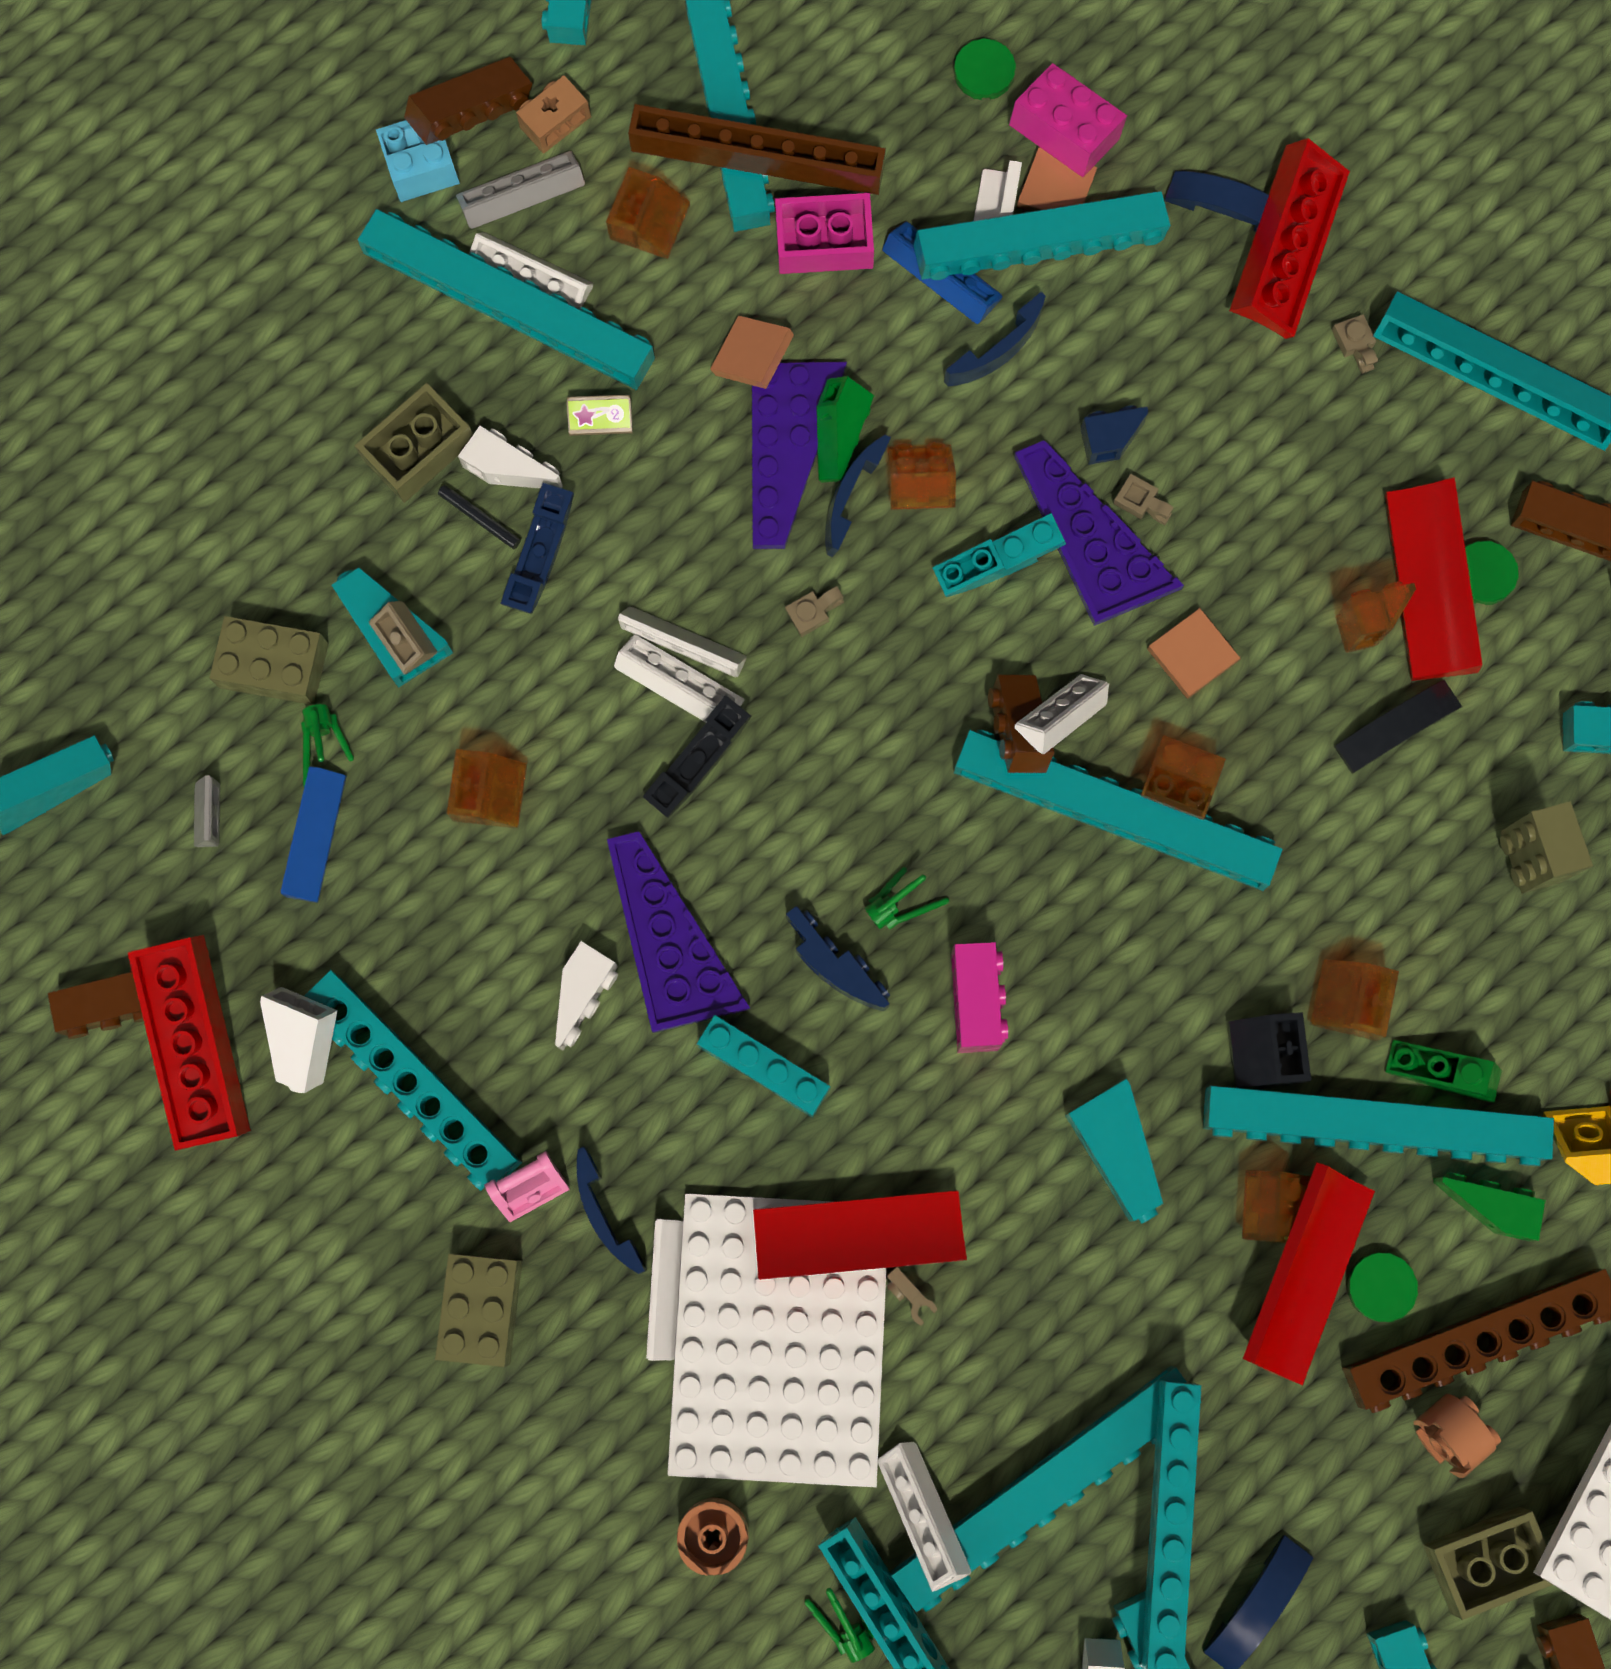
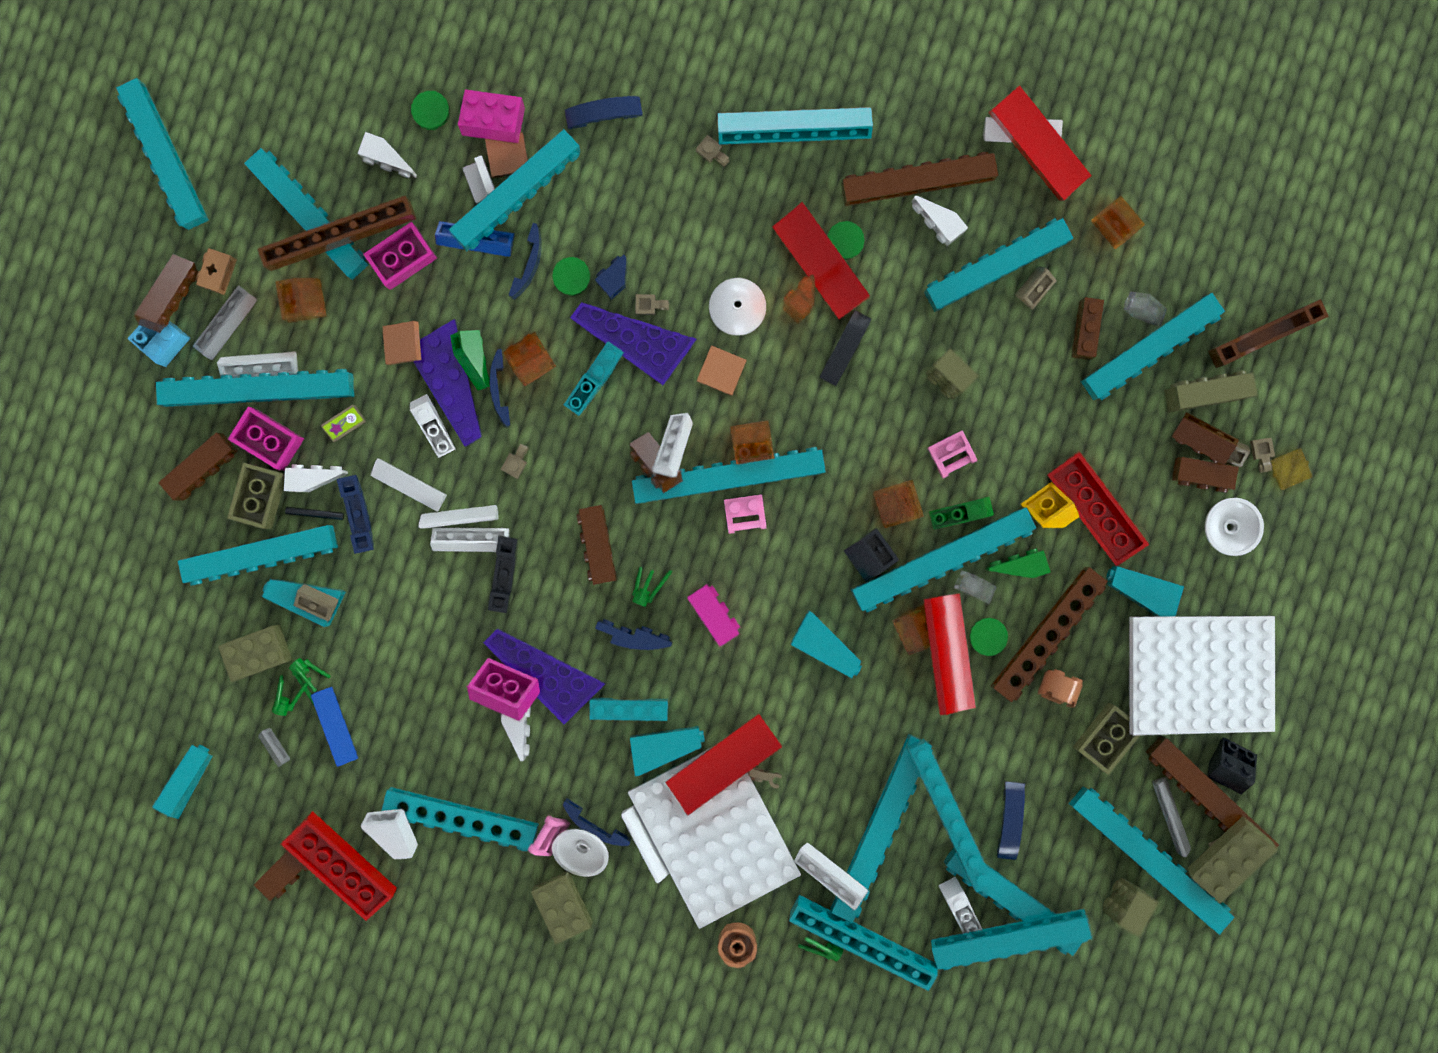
camera: 30 degrees left, 10 degrees up
(258, 756) = (281, 703): none -> green plant
(358, 358) = (198, 467): none -> reddish brown brick
(363, 525) = (257, 554): none -> teal brick
(478, 371) = (266, 438): none -> dark pink brick
(486, 789) = (407, 653): clear orange slope -> none
(549, 1249) = (580, 852): none -> white dish
(596, 921) = (503, 689): none -> dark pink brick
(638, 553) = (408, 484): none -> white slope
(723, 490) = (431, 425): none -> white slope
(777, 1155) = (662, 747): none -> teal slope
(862, 795) = (597, 544): none -> reddish brown brick
(880, 84) = (378, 151): none -> white slope
(1050, 398) = (571, 276): none -> green tile
(1114, 871) = (745, 507): none -> bright pink plate
(1258, 592) = (733, 319): none -> white dish
(1290, 238) = (646, 114): red arch -> none
(1404, 1196) = (975, 587): none -> clear slope
(1479, 962) = (948, 448): none -> bright pink plate

